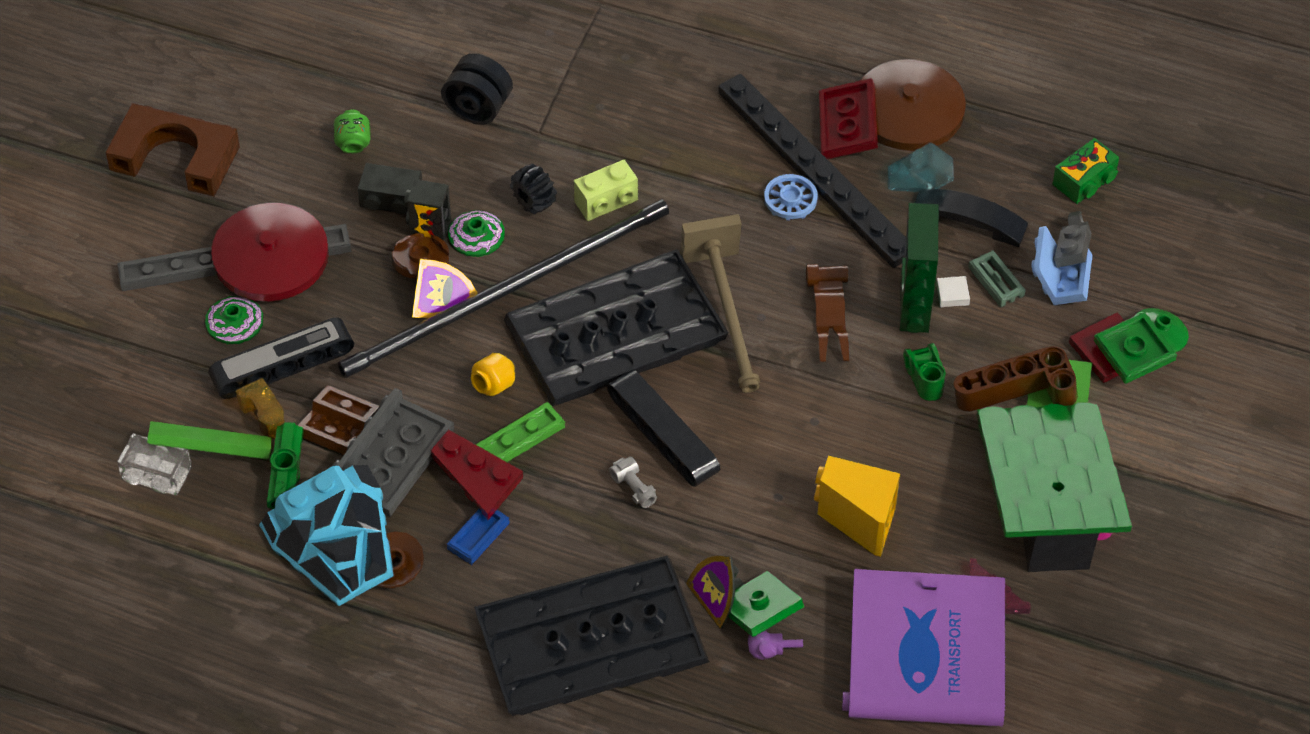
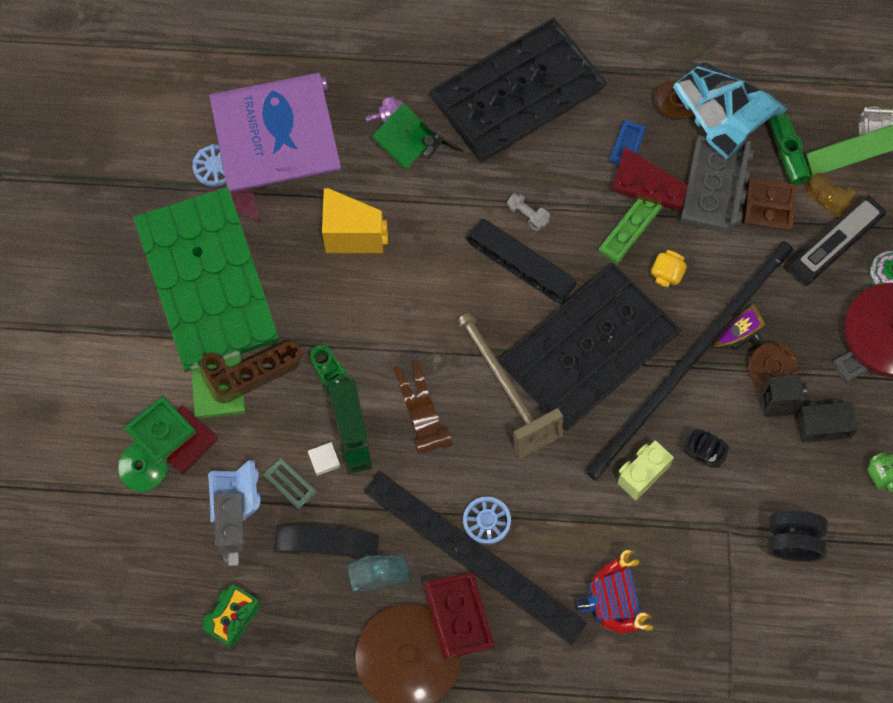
camera: 165 degrees right, 15 degrees up
(476, 233) = (733, 418): dish -> none
(683, 91) = (615, 598): none -> torso
(1017, 640) = (213, 166): none -> light blue wheel

